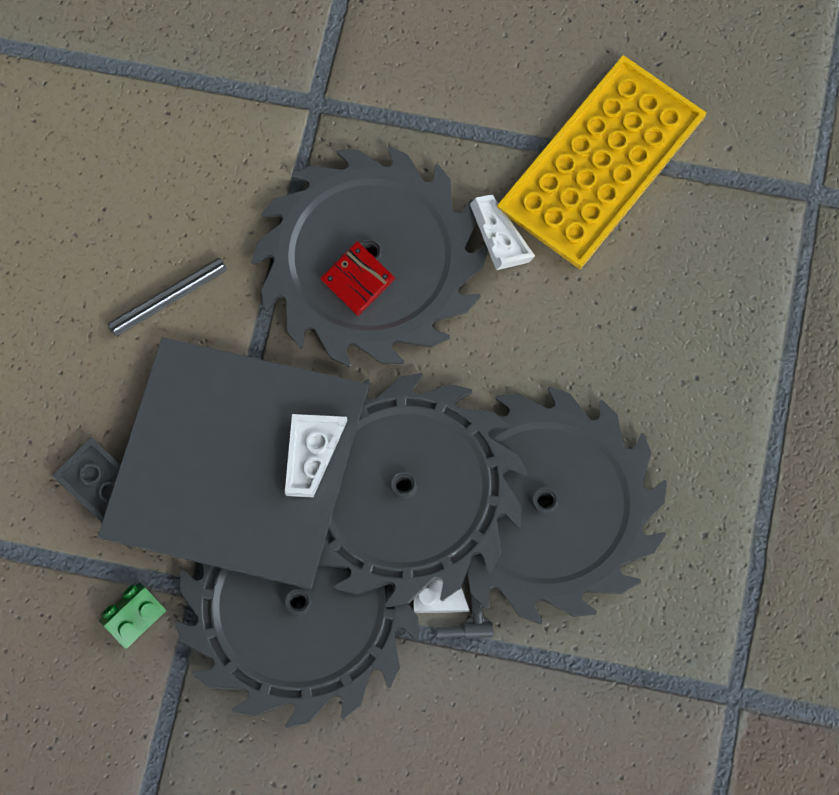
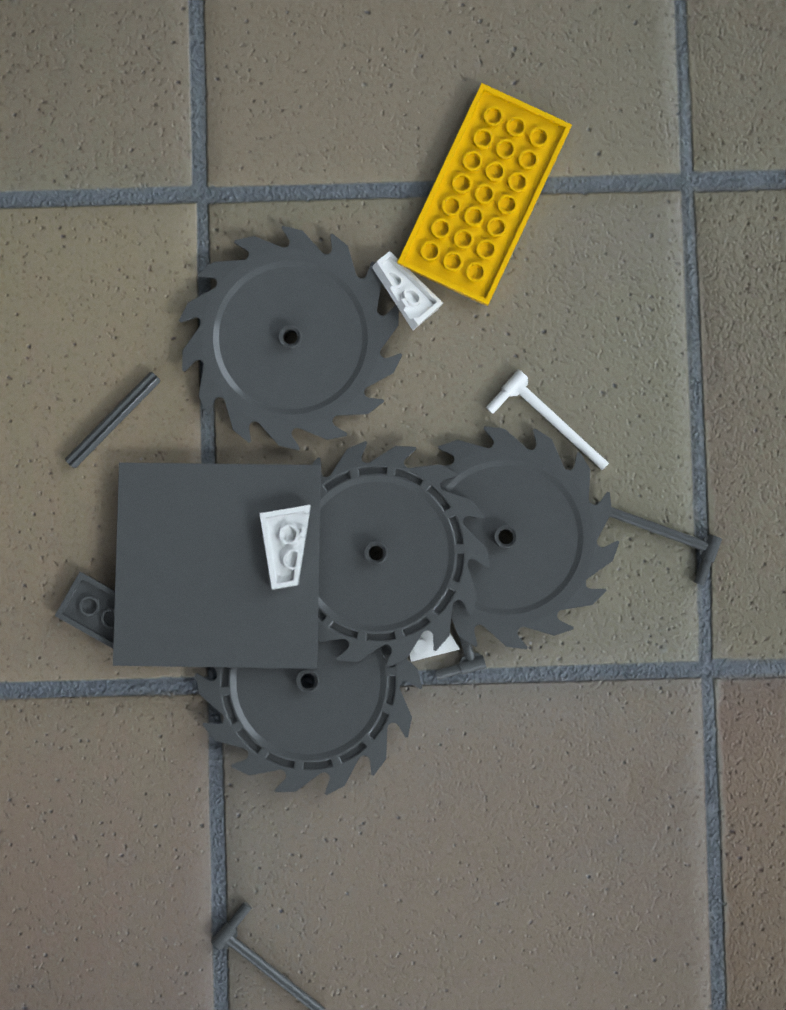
camera: 25 degrees left, 15 degrees up
(131, 614) = (161, 724): bracket -> none
(357, 278) = (286, 366): red tile -> none
(594, 354) = (517, 385): none -> white bar
(761, 565) = (707, 547): none -> dark grey bar

